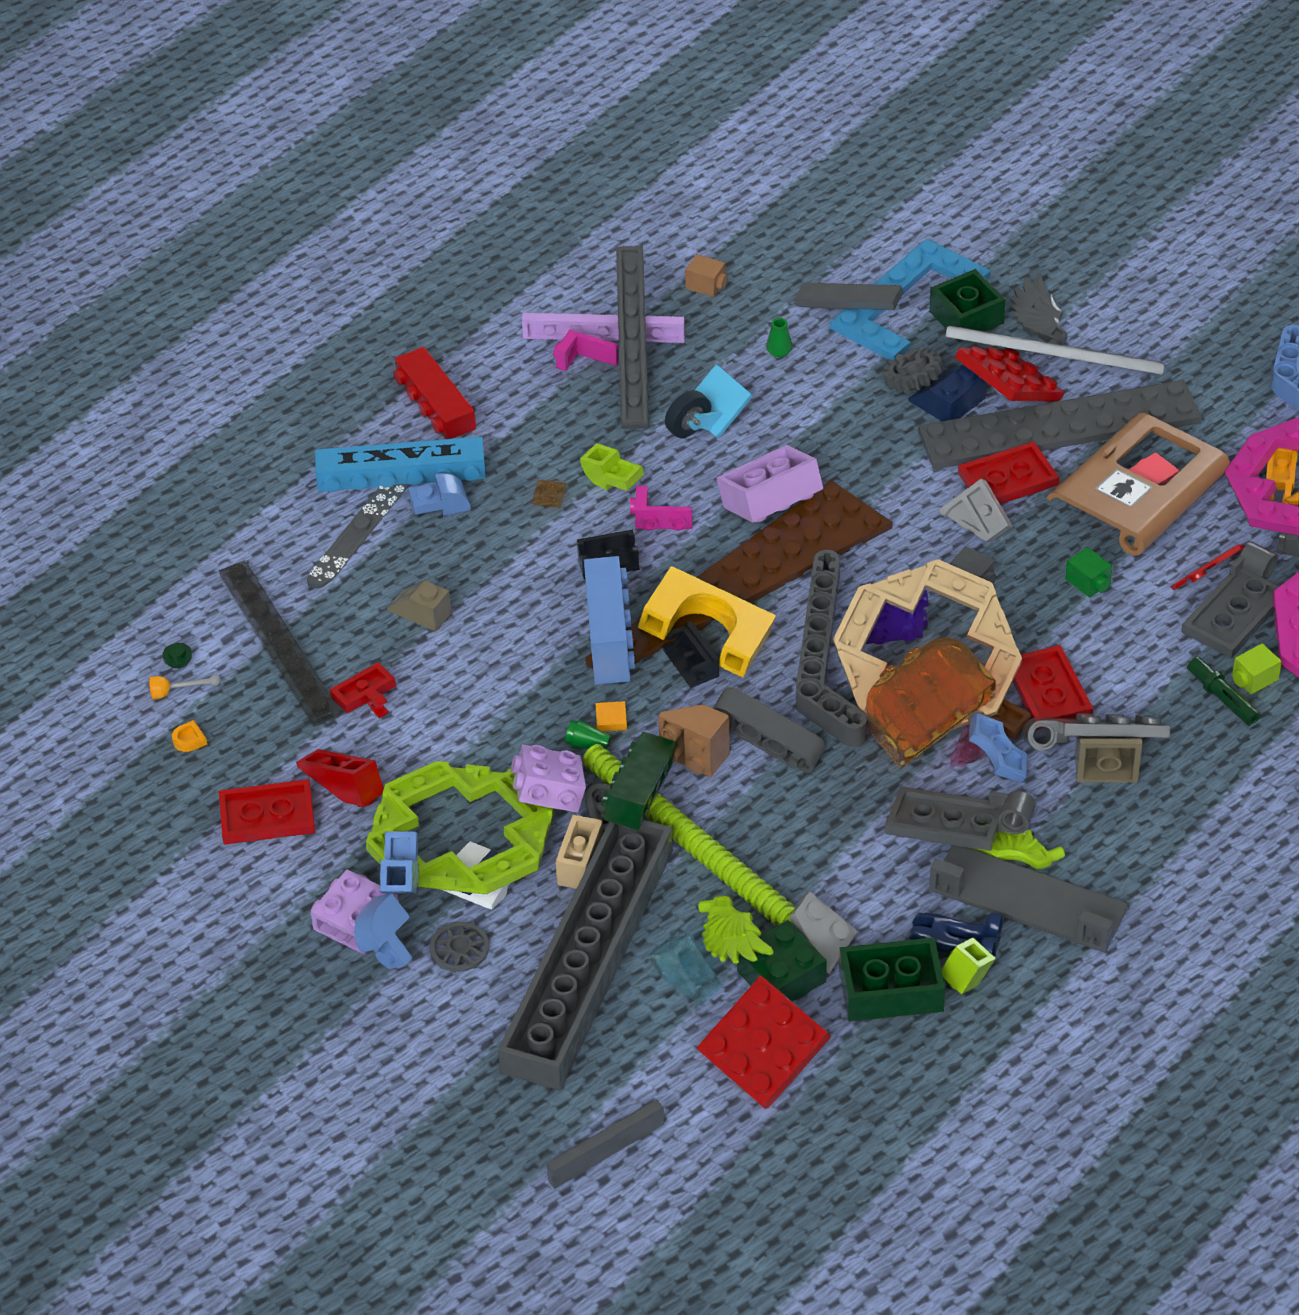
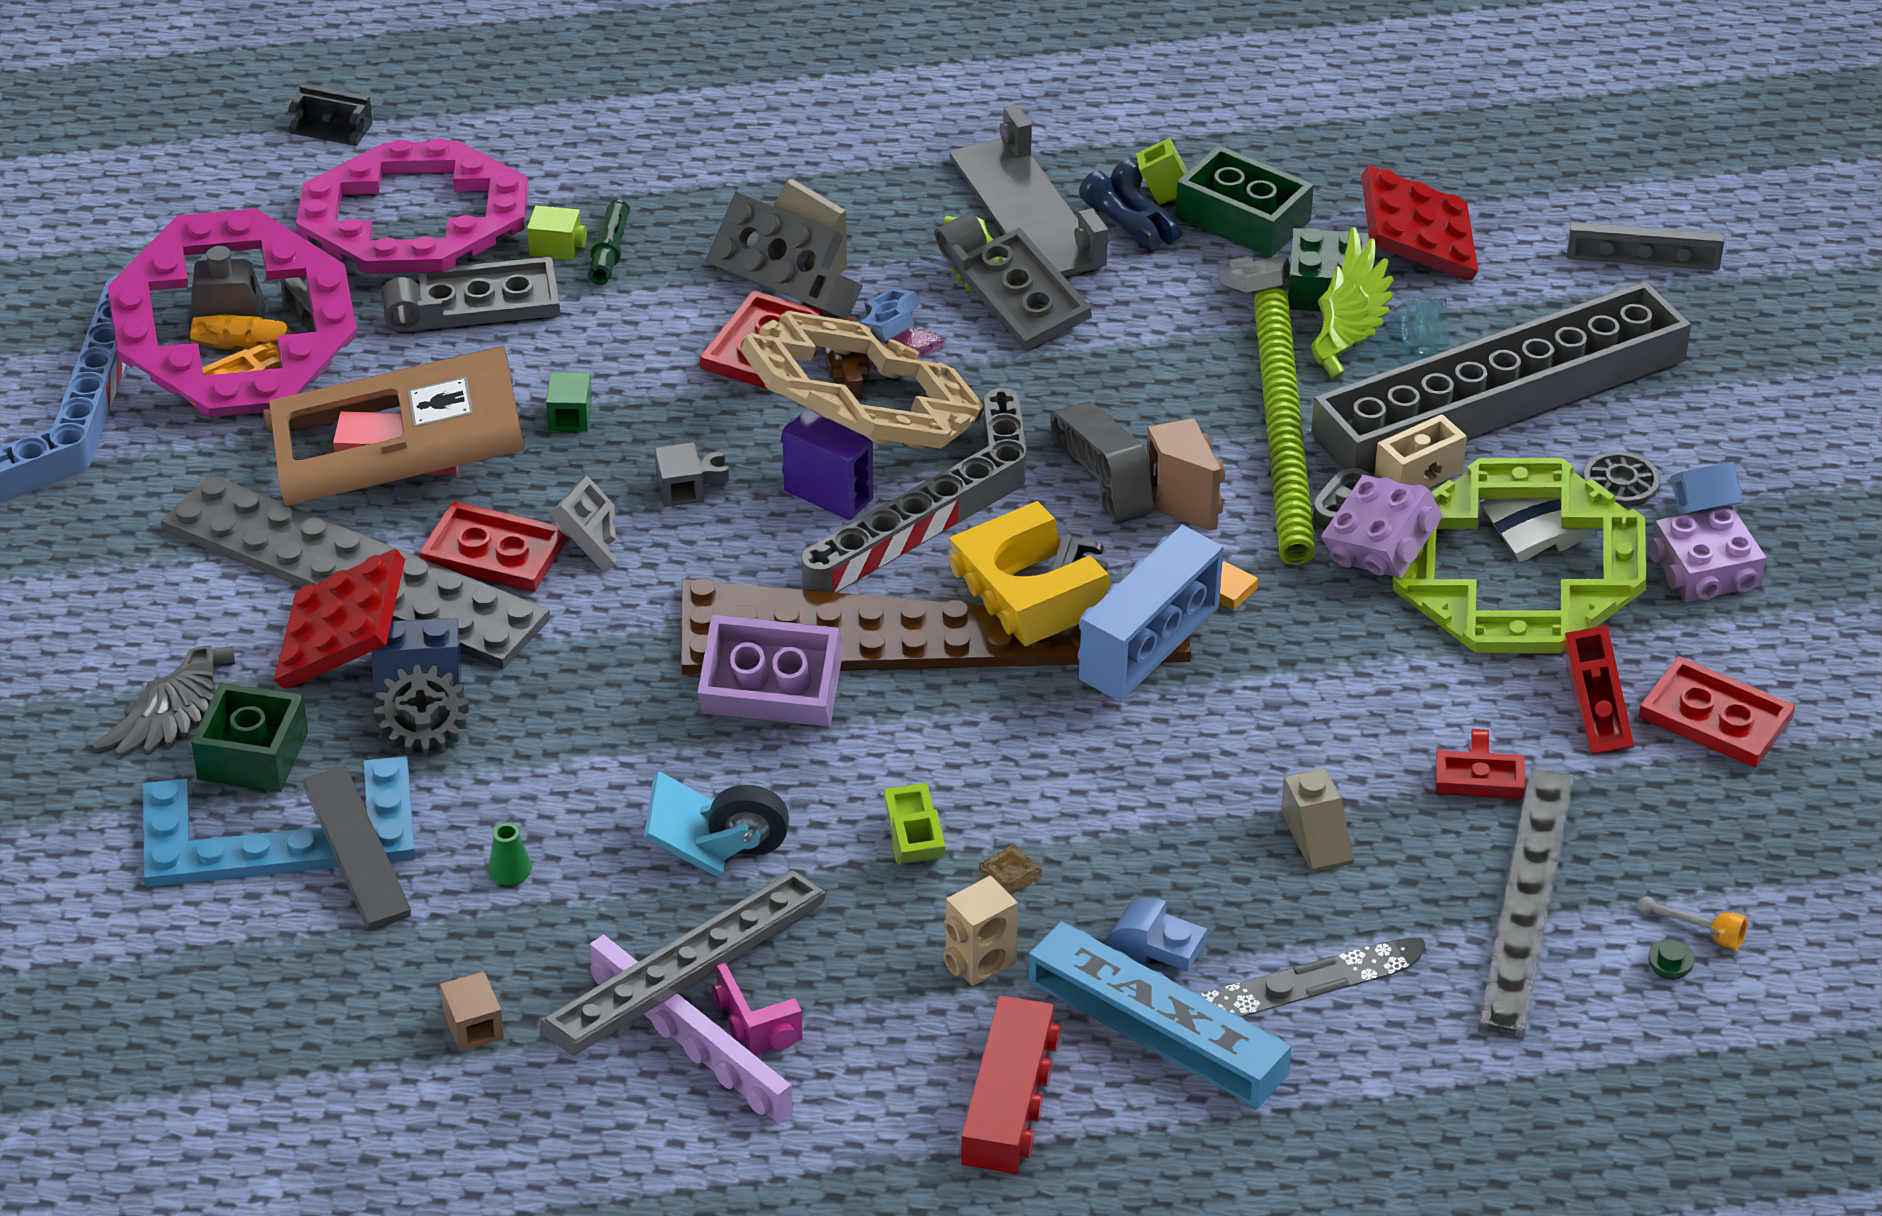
camera: 140 degrees left, 5 degrees down
(188, 737) = (1737, 857): light orange tile -> none
(399, 868) = (1655, 486): medium blue brick -> none
(515, 430) = (980, 931): none -> tan brick
(584, 735) = (1285, 576): green cone -> none
(610, 545) = (1033, 743): black hinge -> none
(638, 780) = (1300, 446): dark green brick -> none
(658, 516) = (935, 748): dark pink bracket -> none
(926, 697) = (930, 330): clear orange brick -> none
(1055, 349) = (248, 623): tile -> none
(1200, 572) = (447, 340): red piece -> none

